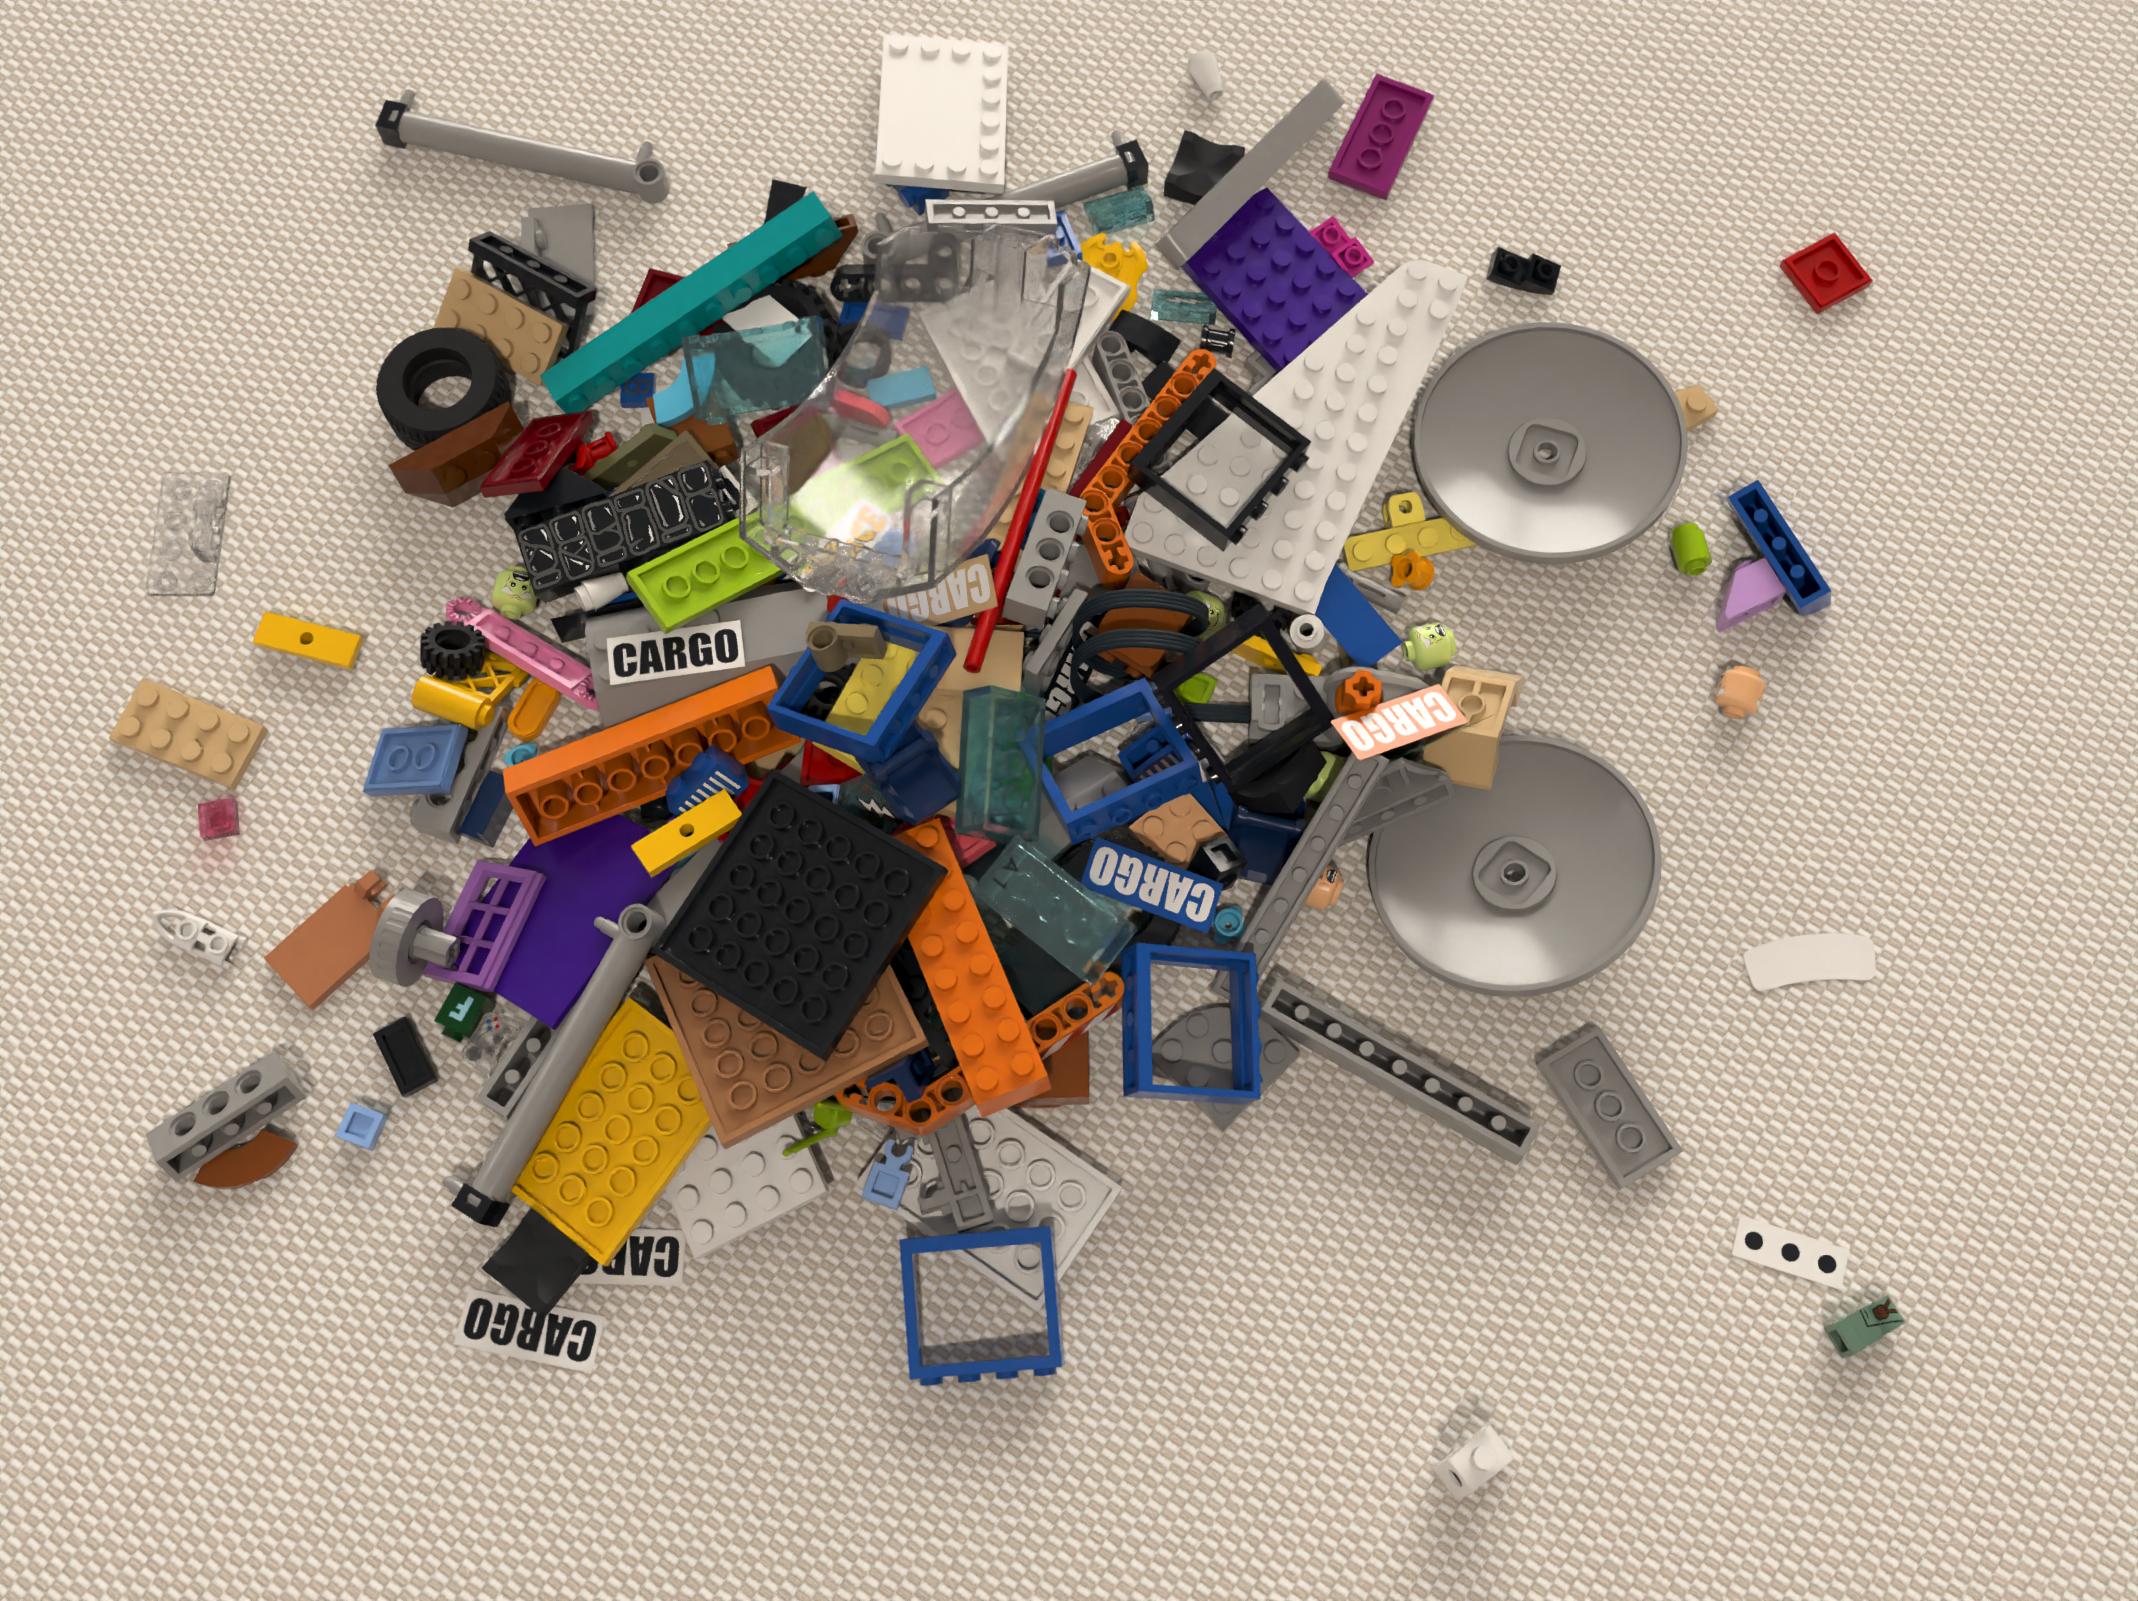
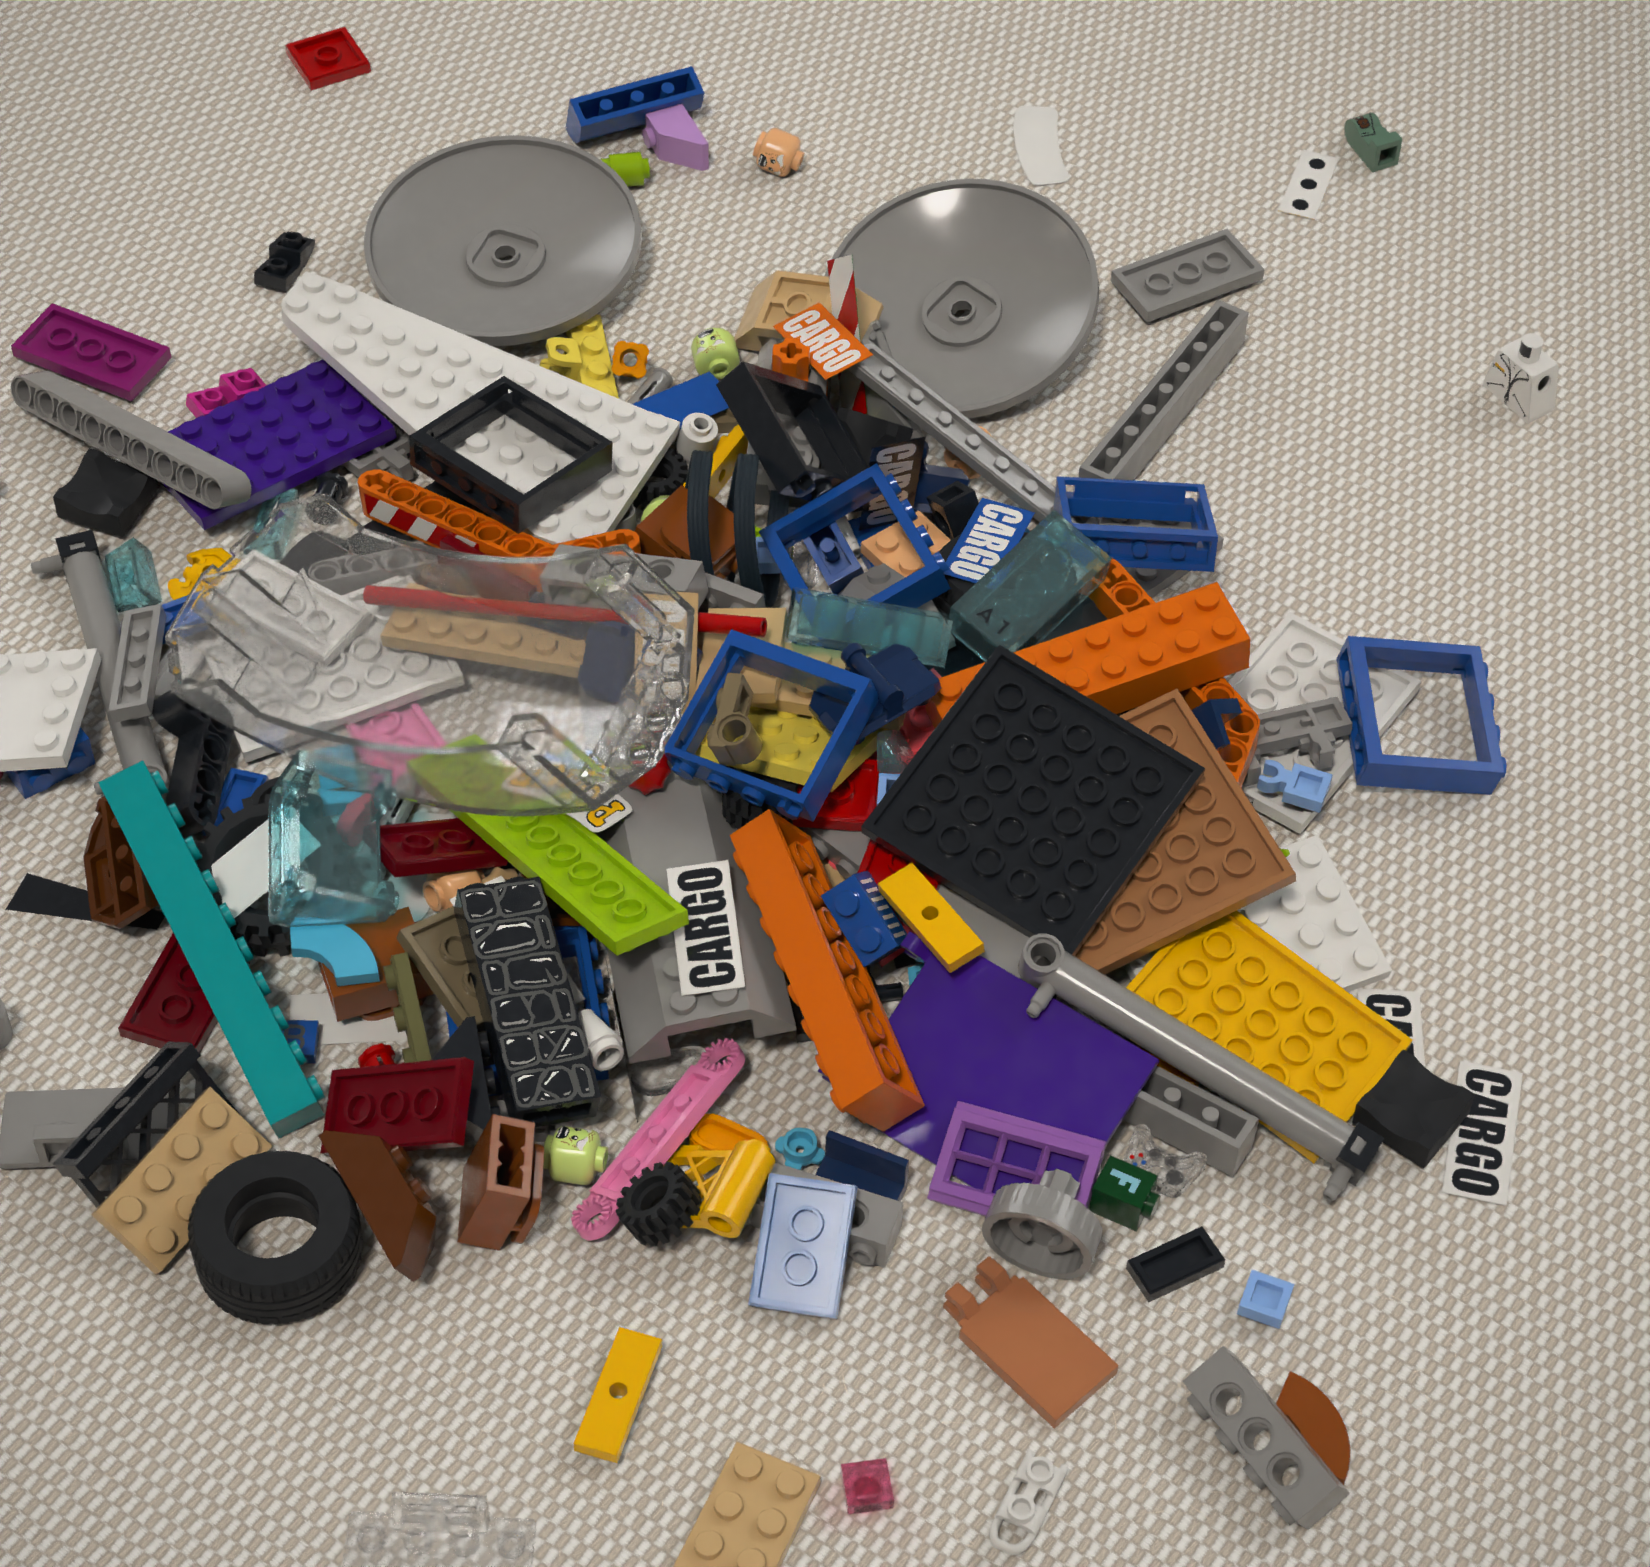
camera: 90 degrees left, 20 degrees down
(470, 537) = (501, 1184): none -> dark orange brick

